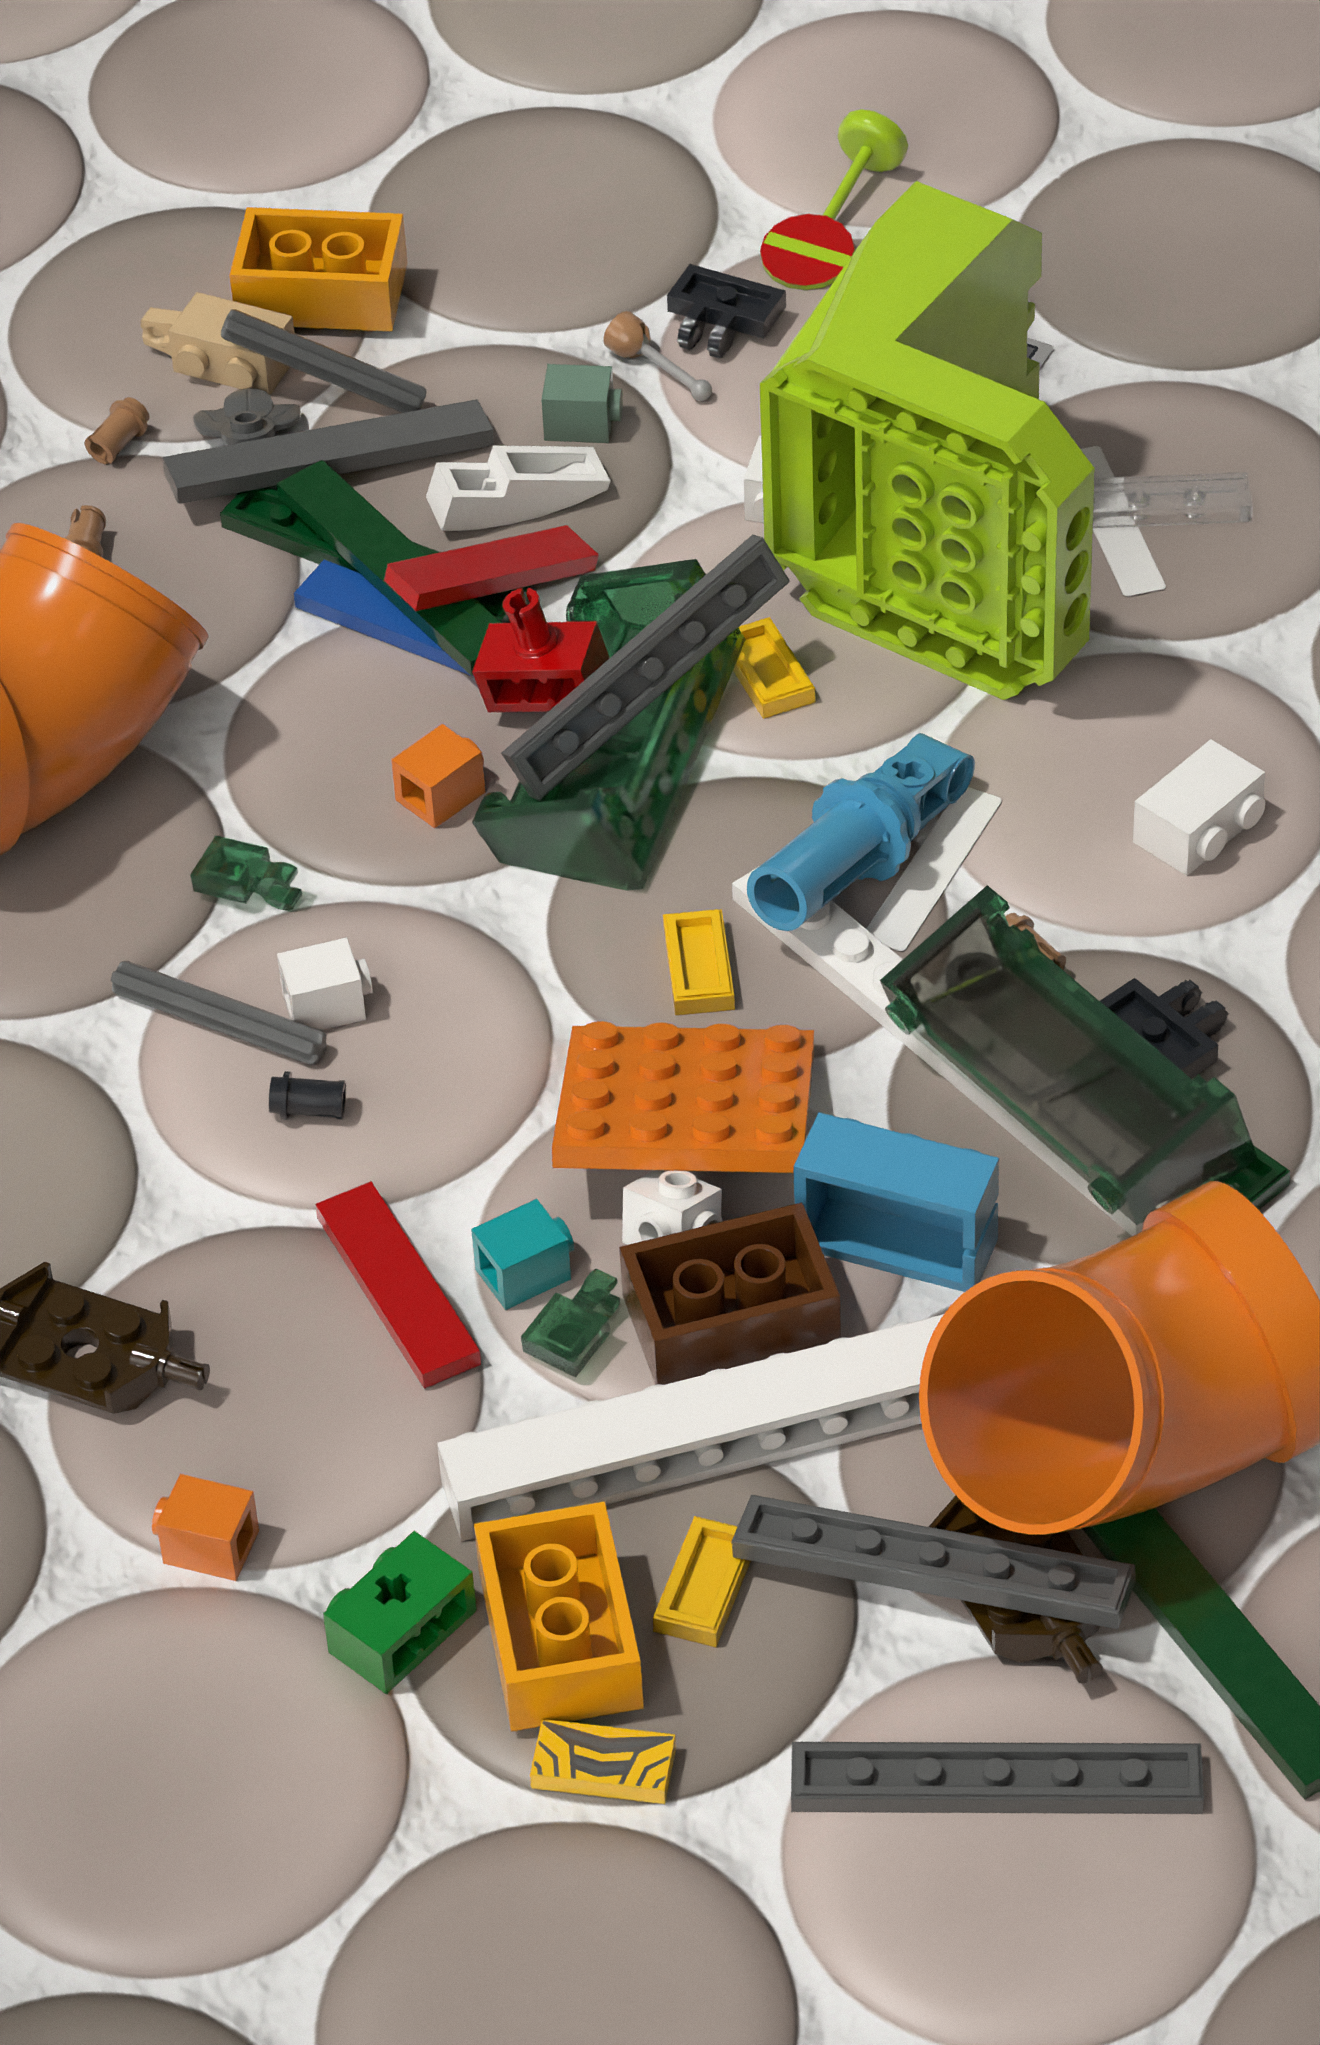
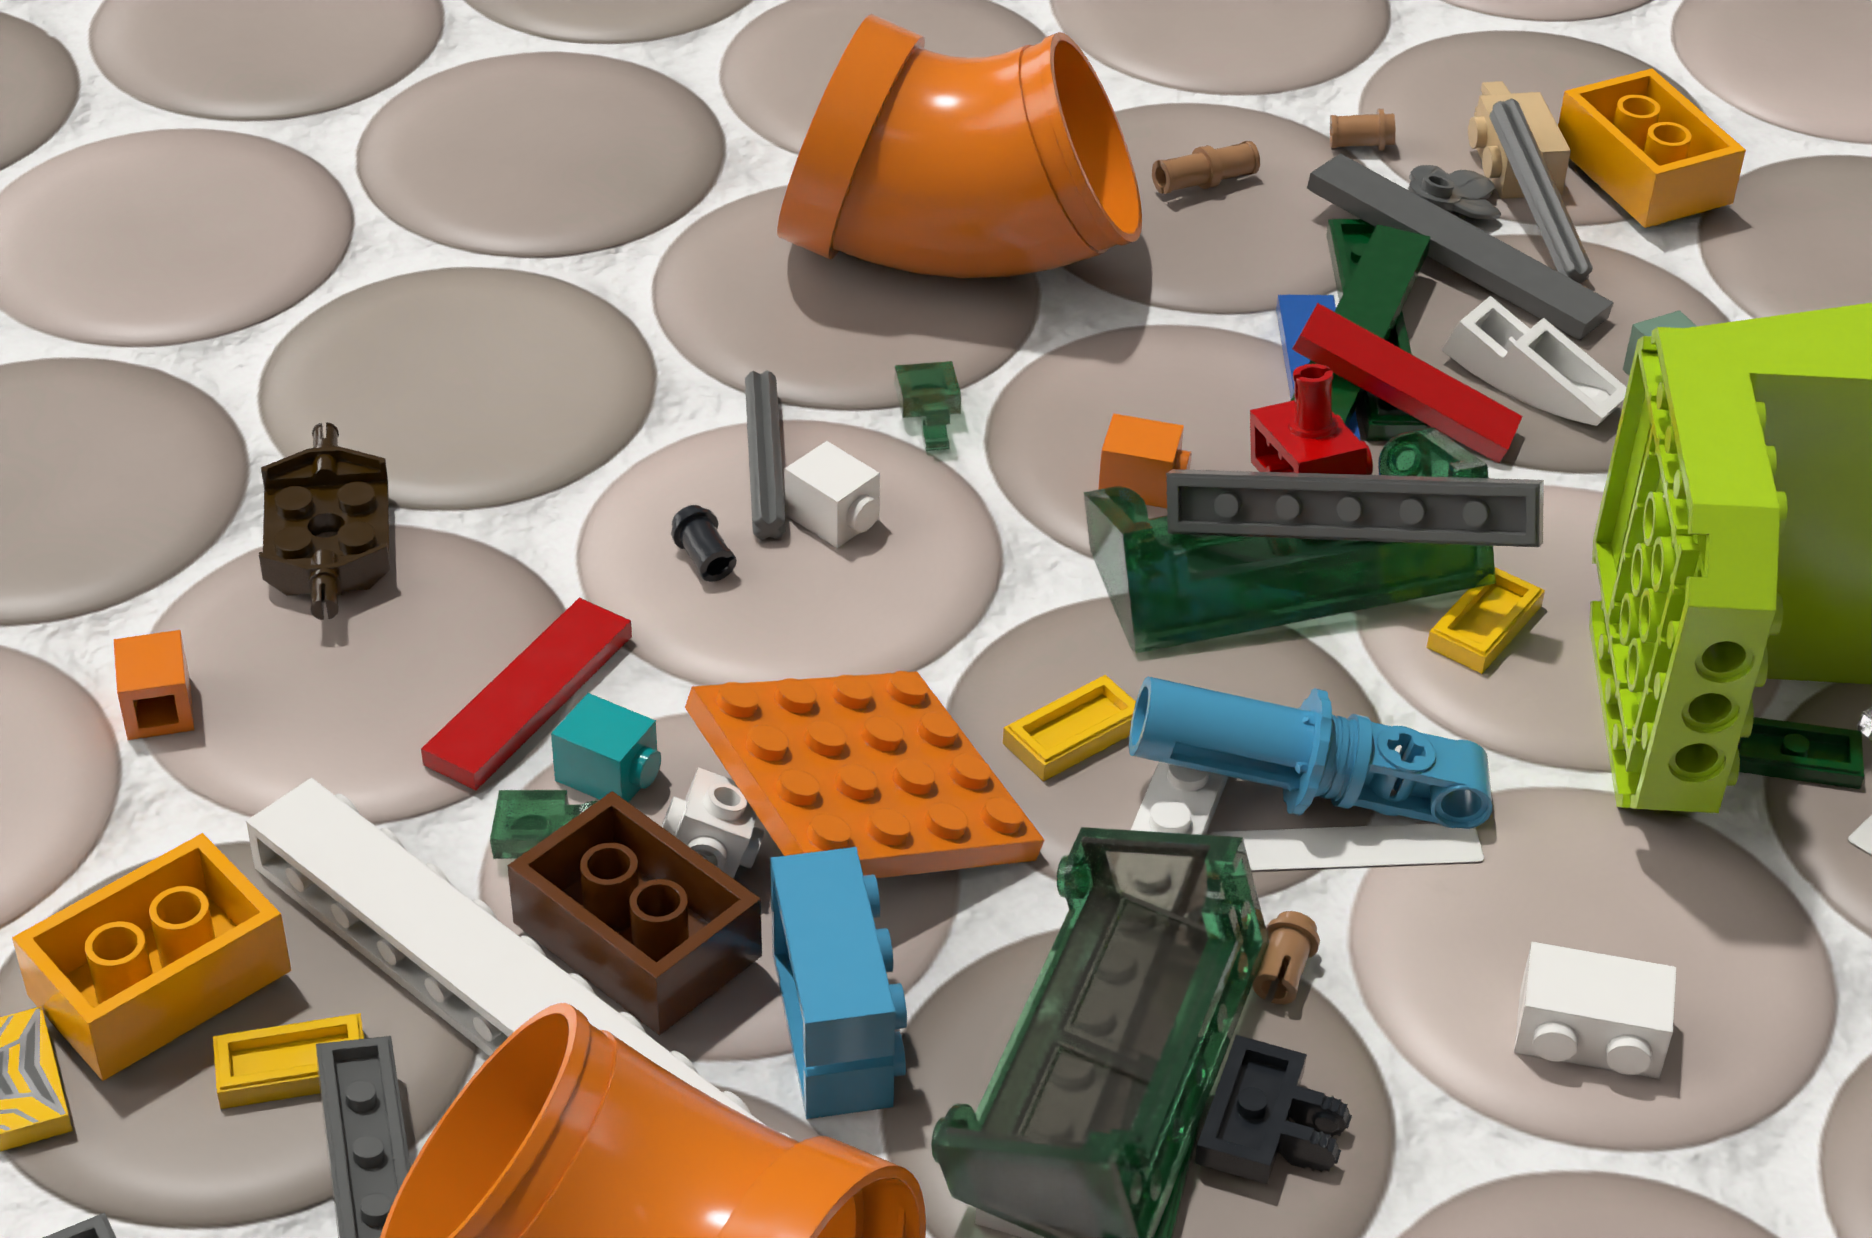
camera: 55 degrees right, 5 degrees down
(399, 1611) = (104, 836): green brick -> none

